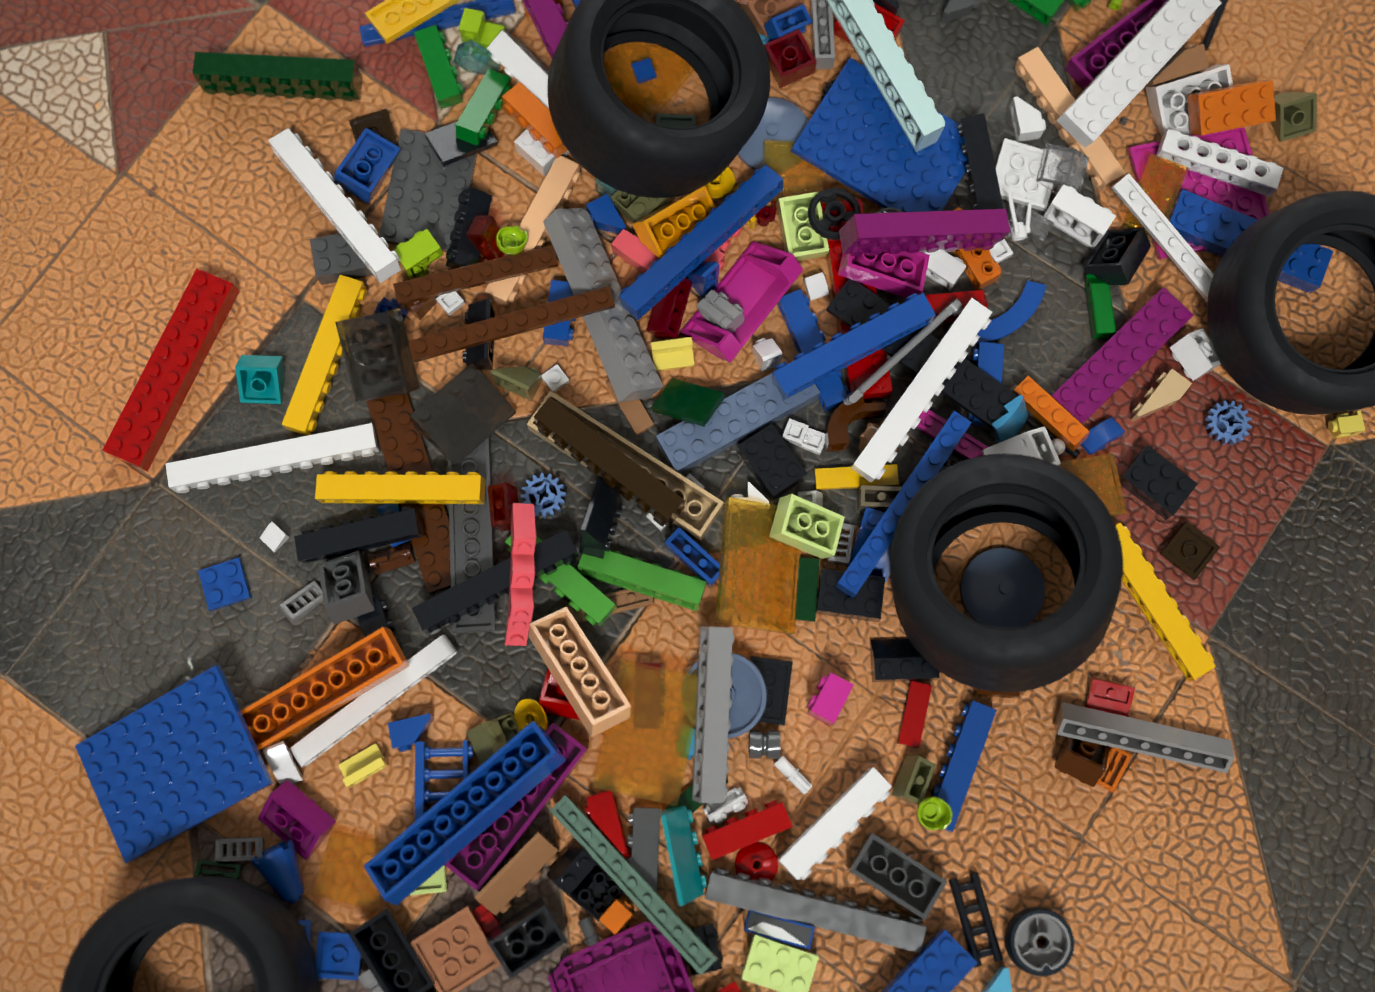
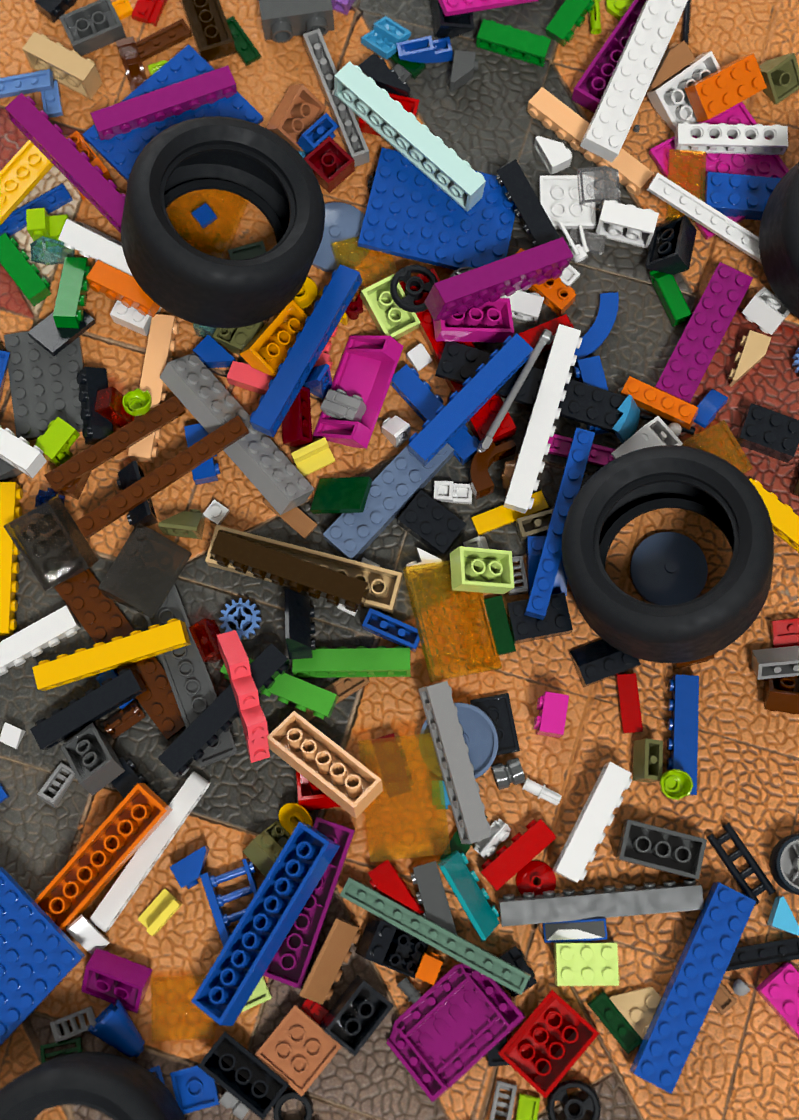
camera: 15 degrees left, 0 degrees up
(450, 302) = (100, 475): white plate -> none

